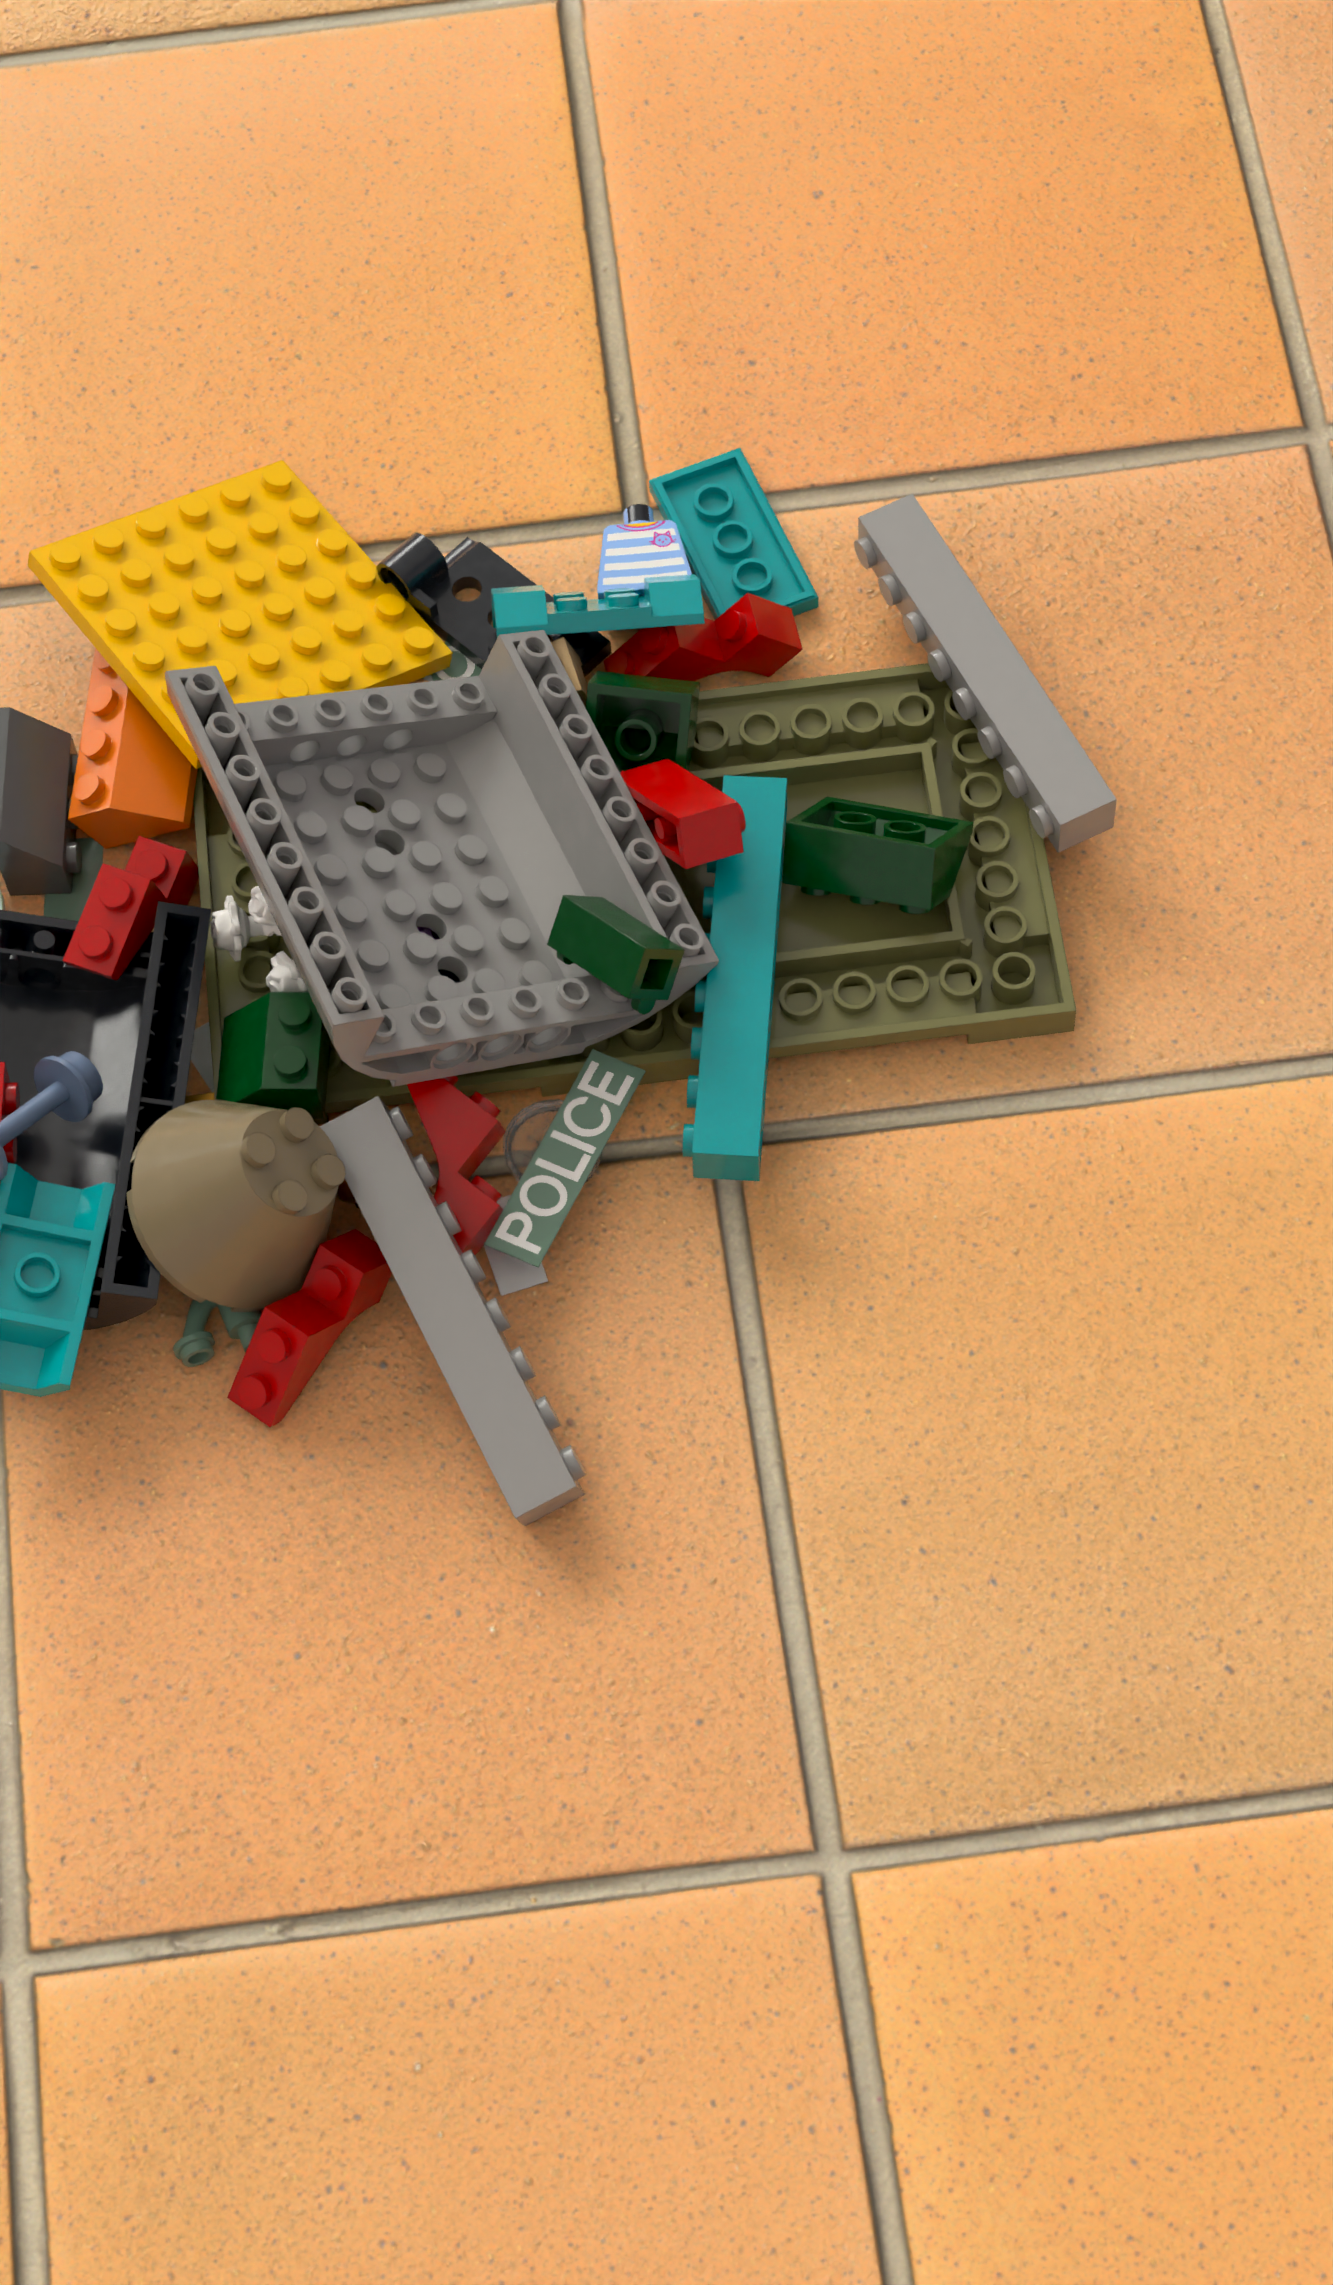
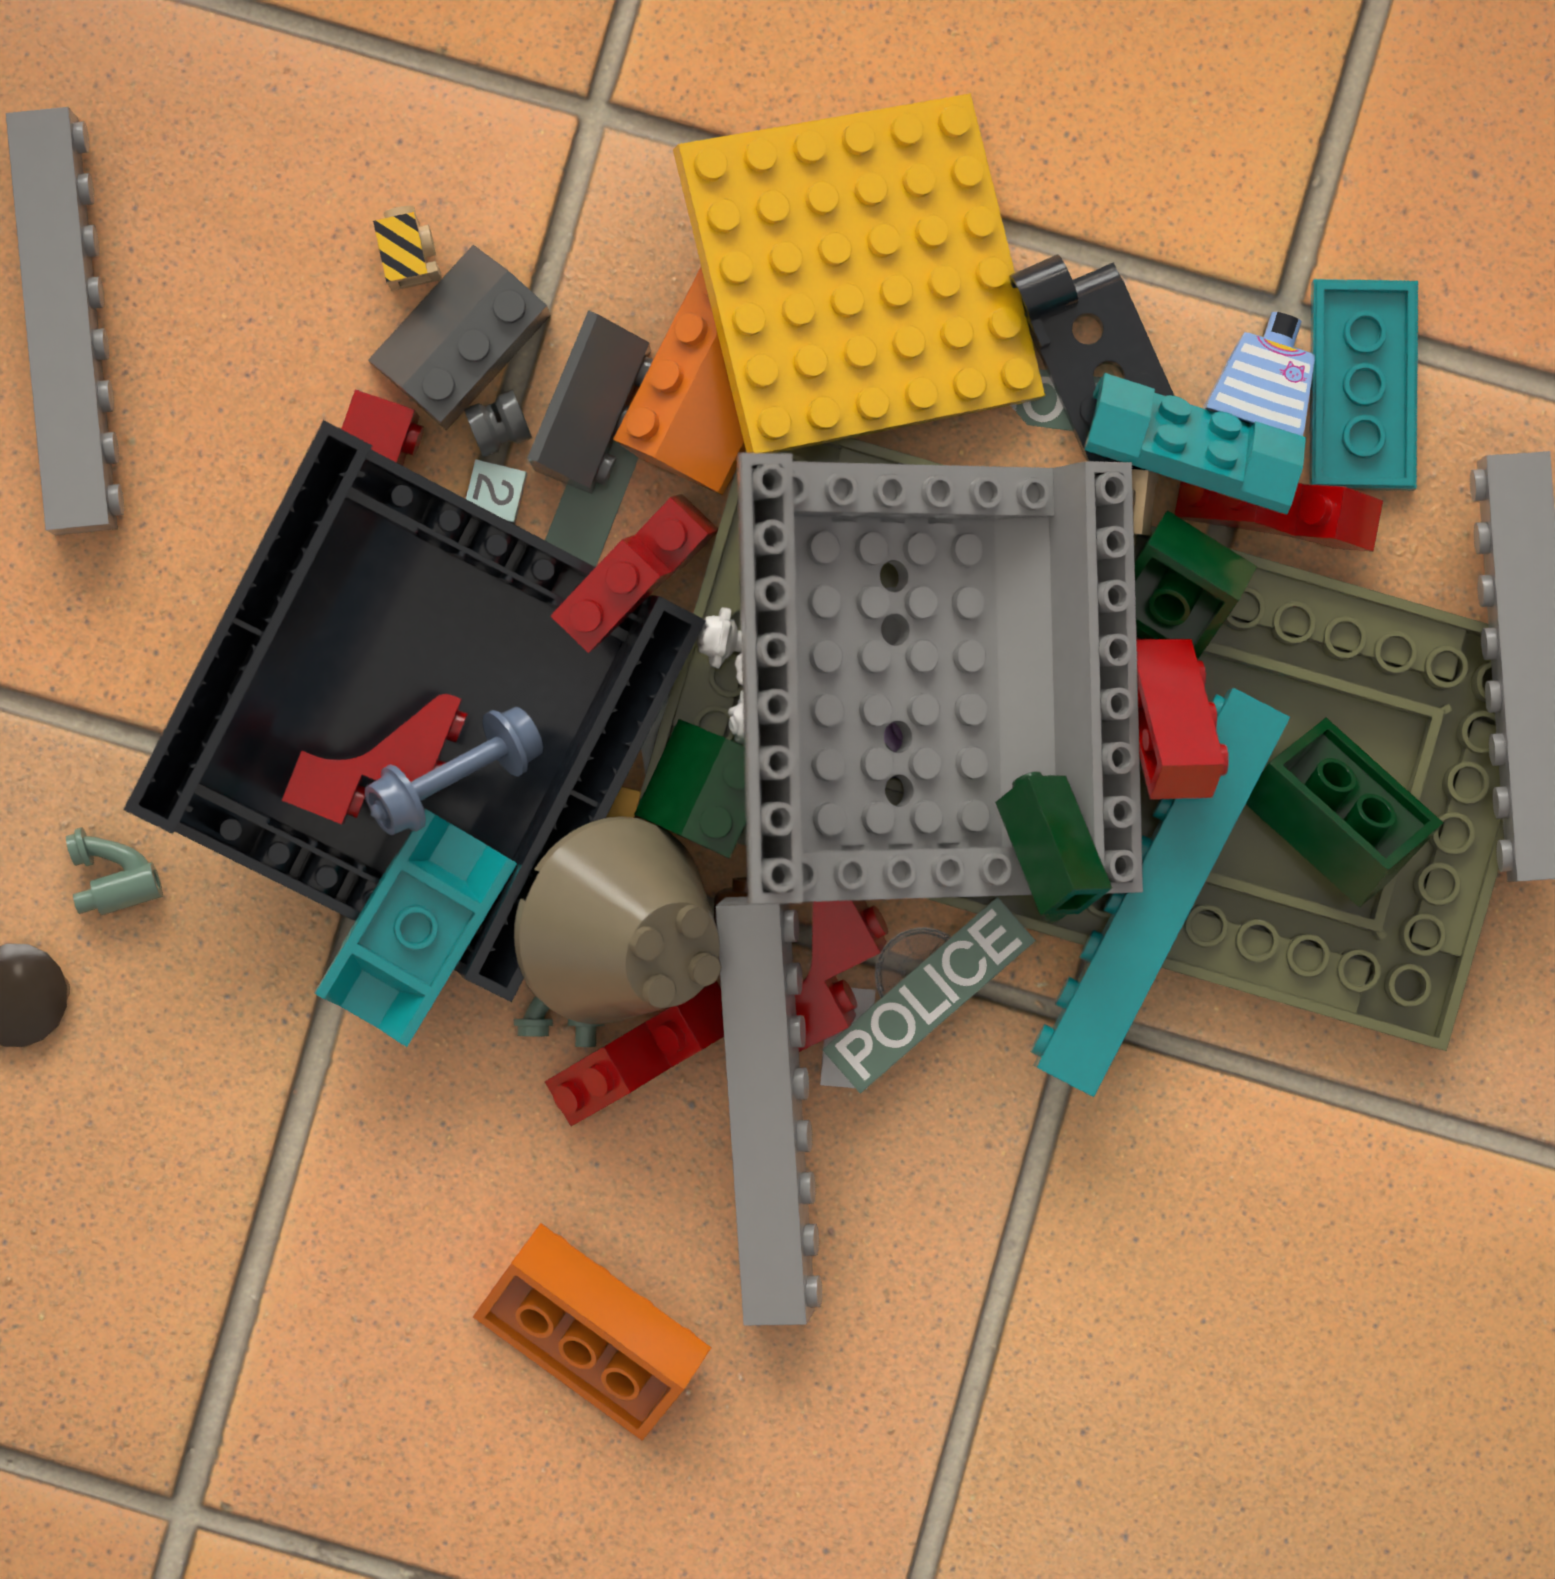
camera: 20 degrees right, 25 degrees up
(366, 1601) = (592, 1332): none -> orange slope

